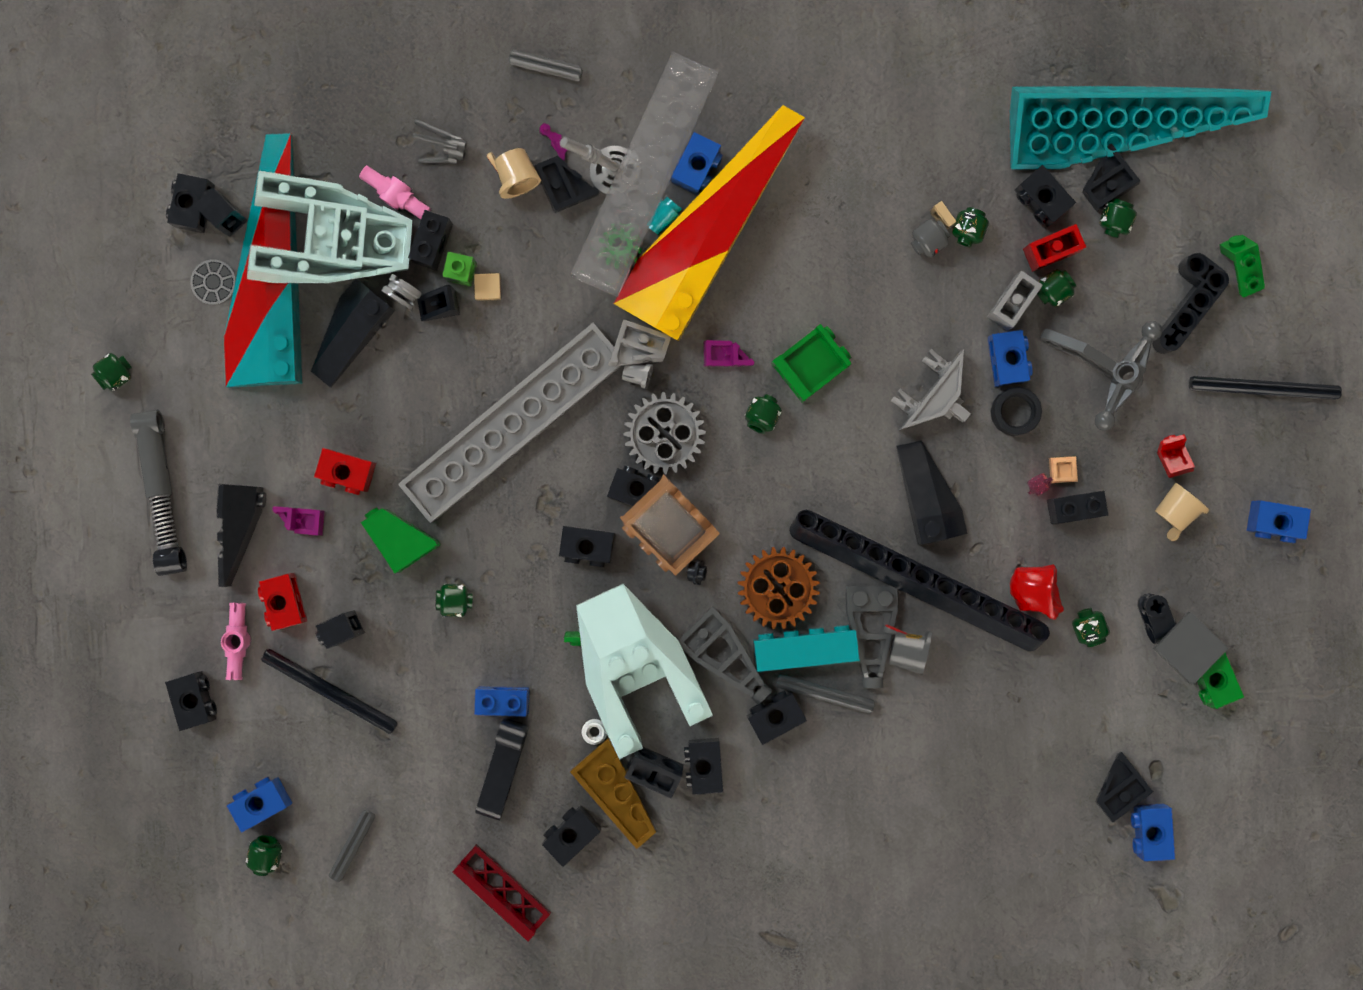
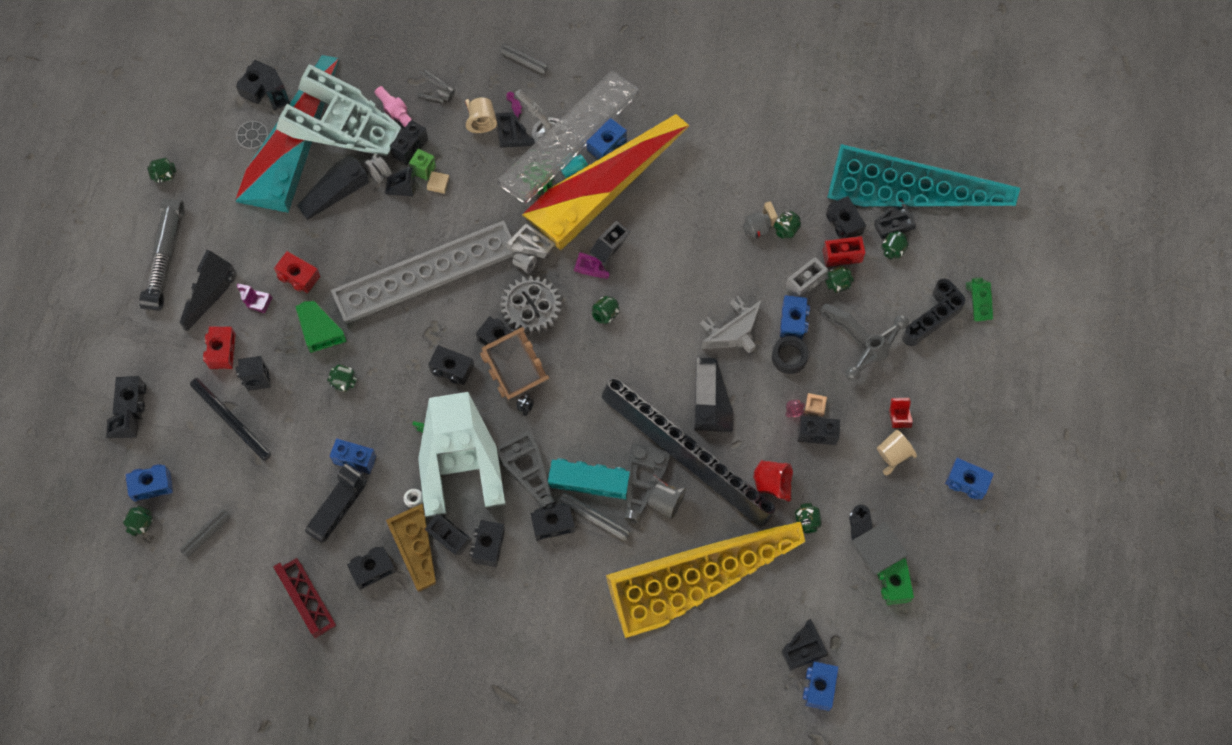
camera: 15 degrees right, 20 degrees down
(197, 739) = (122, 425): none -> black slope
(233, 654) = (173, 374): bright pink pin -> none
(744, 319) = (610, 241): none -> black brick
(796, 573) = (565, 436): dark orange gear -> none
(812, 362) = (650, 286): green panel -> none
(939, 758) = (668, 587): none -> yellow wedge
(1265, 387) = (978, 385): black axle -> none

